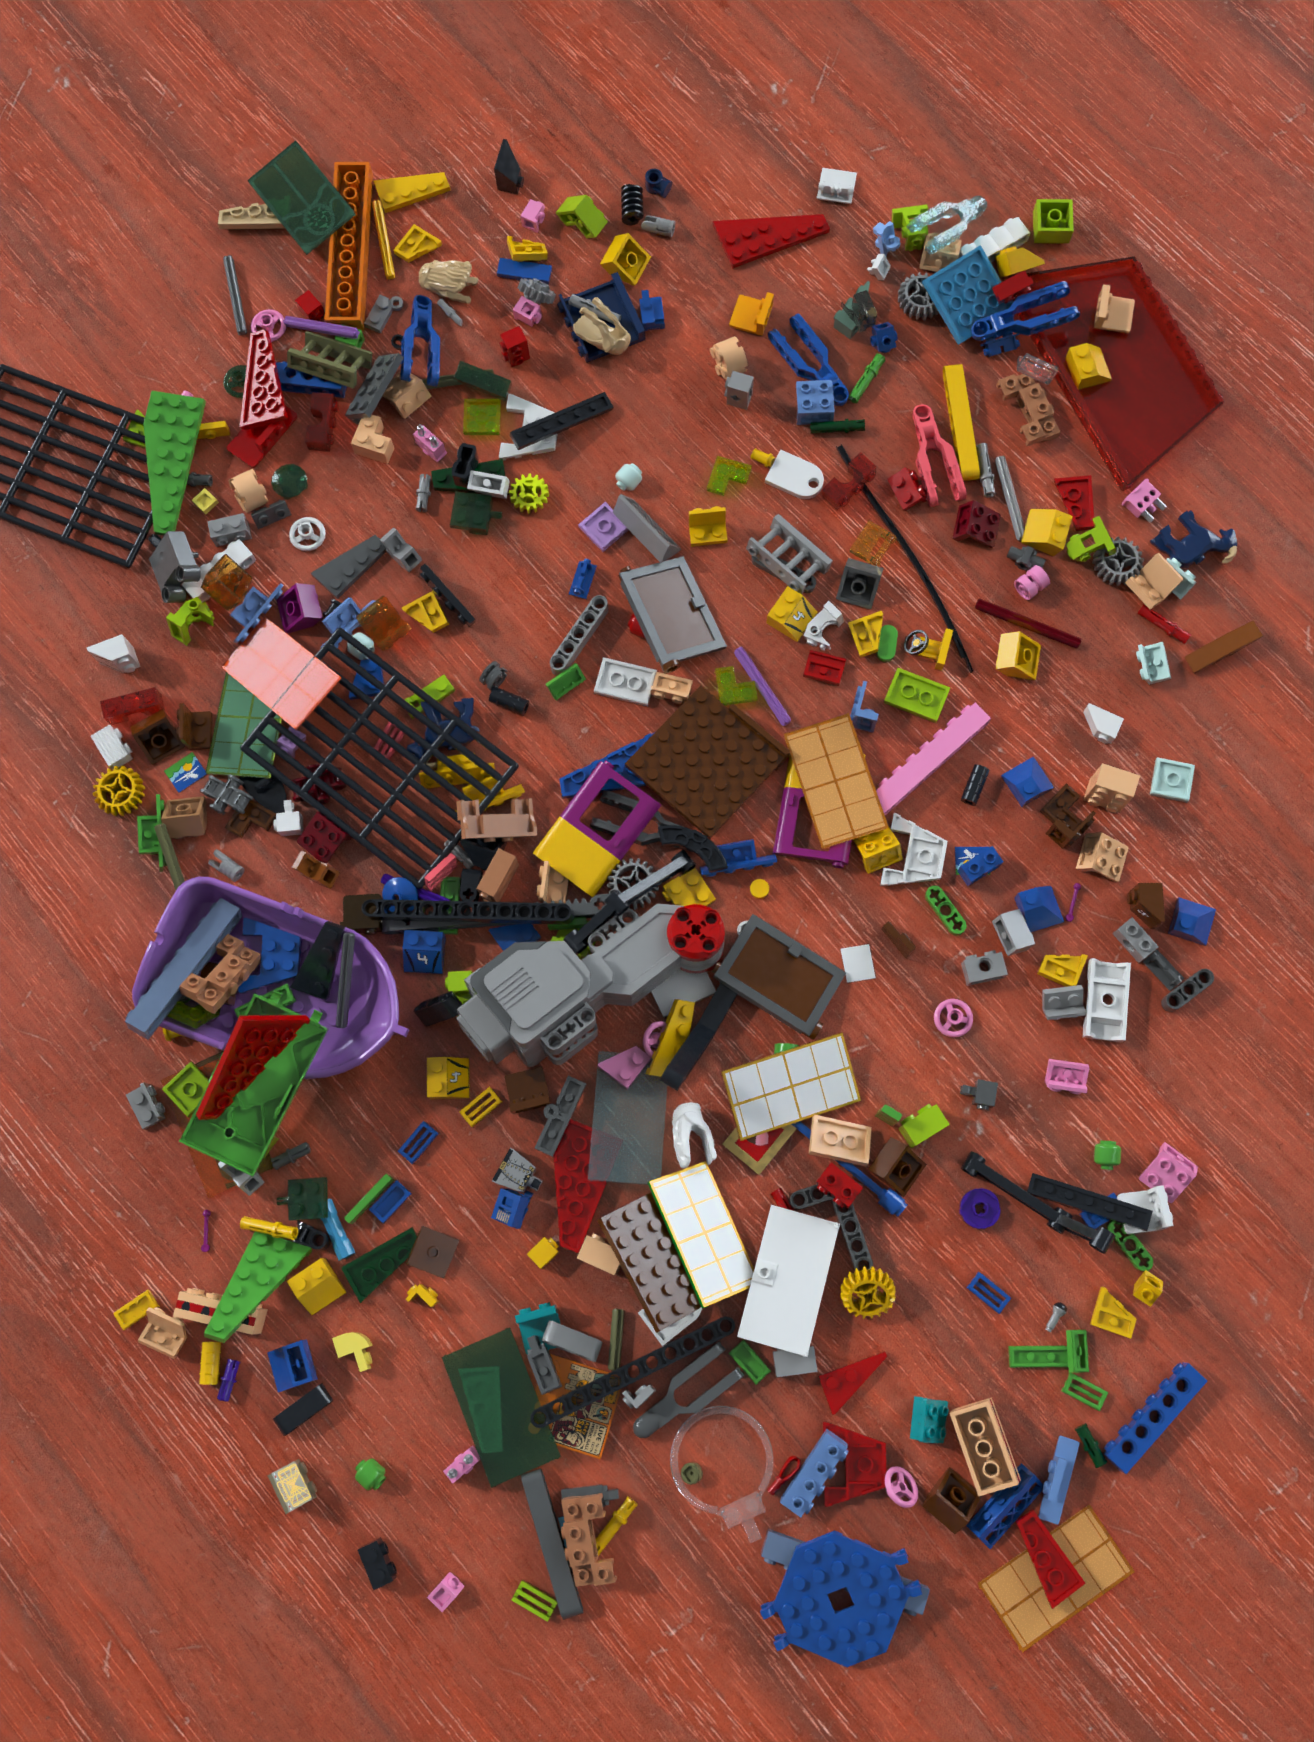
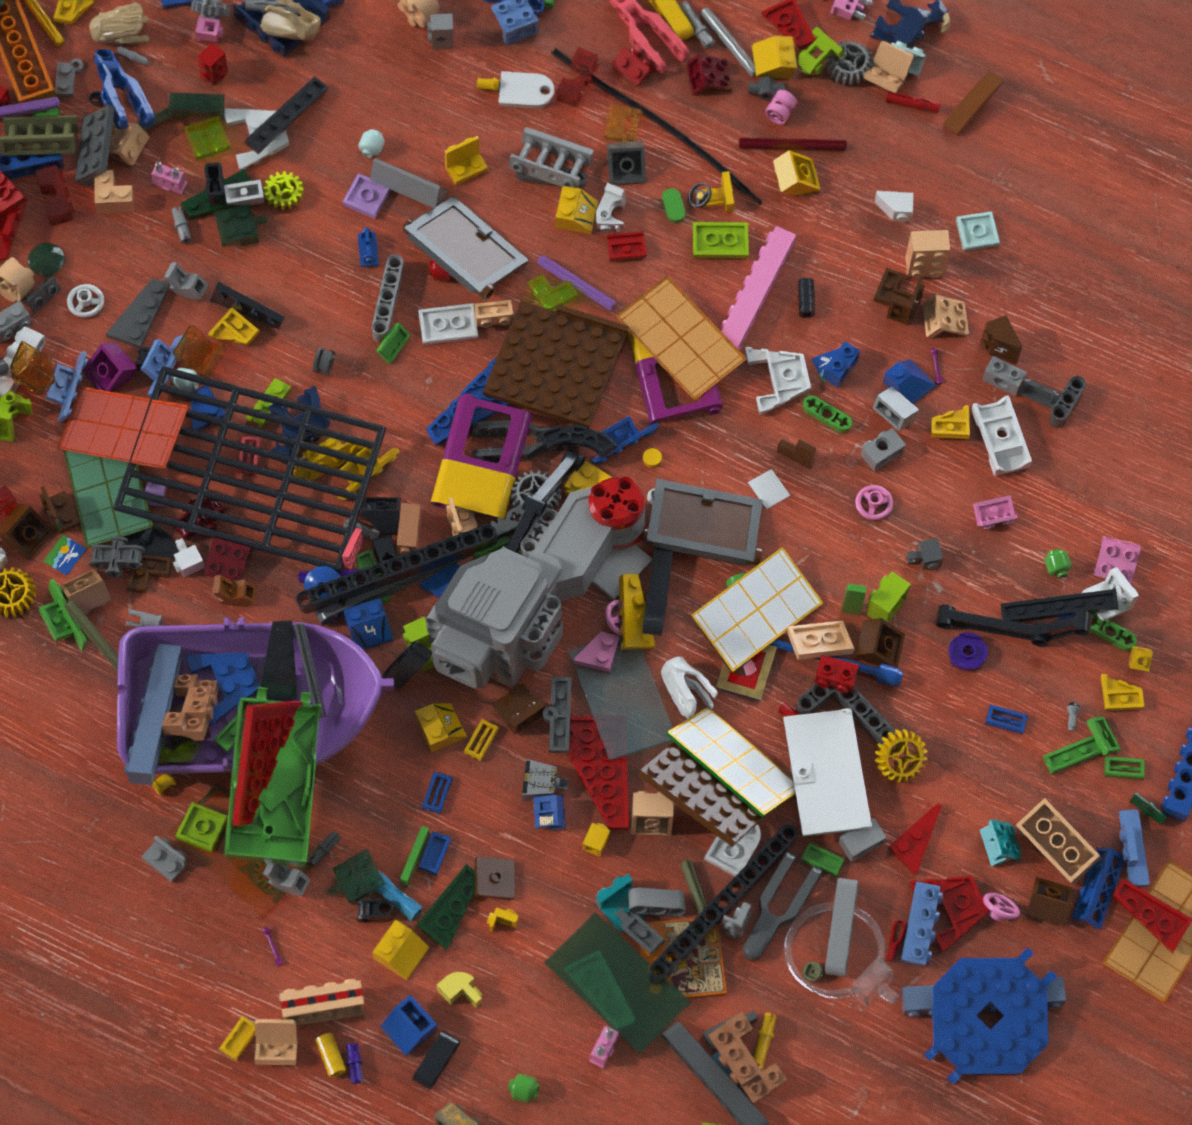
camera: 30 degrees left, 10 degrees down
(254, 1280) = (343, 959): bright green wing -> none
(275, 1229) = (340, 914): yellow pin -> none
(355, 919) = (288, 610): dark brown bracket -> none
(492, 826) = (389, 487): nougat bracket -> none
(509, 701) = (347, 379): black axle -> none
(726, 470) = (459, 106): clear neon green plate -> none
(736, 1442) = (841, 927): none -> light grey beam
(837, 426) = (547, 32): dark green pin -> none
(866, 718) = (682, 275): medium blue bracket -> none
(867, 633) = (651, 203): yellow wing -> none
(879, 849) = (745, 383): yellow bracket -> none
(1027, 781) = (851, 279): blue slope -> none
(1063, 1002) = (964, 451): light grey bracket -> none
(1154, 663) = (919, 137): light aqua bracket -> none
(1191, 921) = (1046, 344): blue slope -> none

